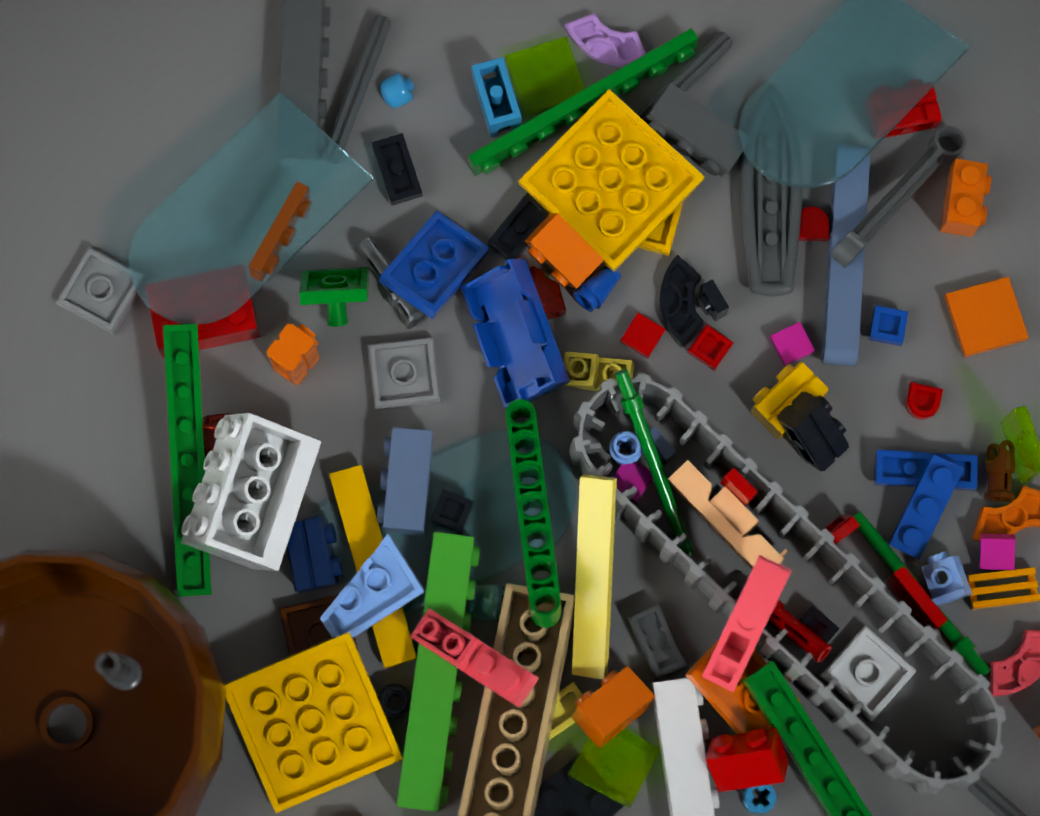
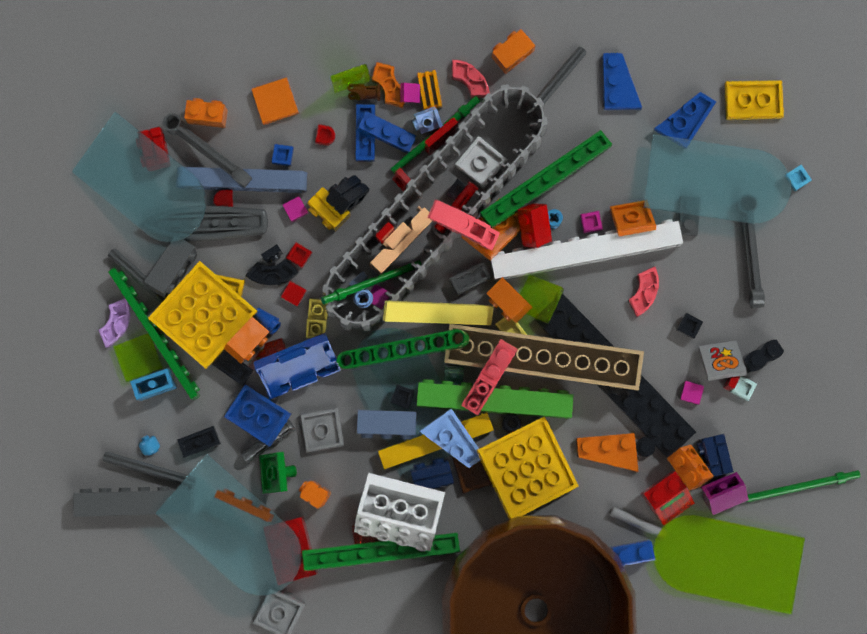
camera: 90 degrees left, 5 degrees up
(120, 677) = (513, 567): dark grey pin -> none

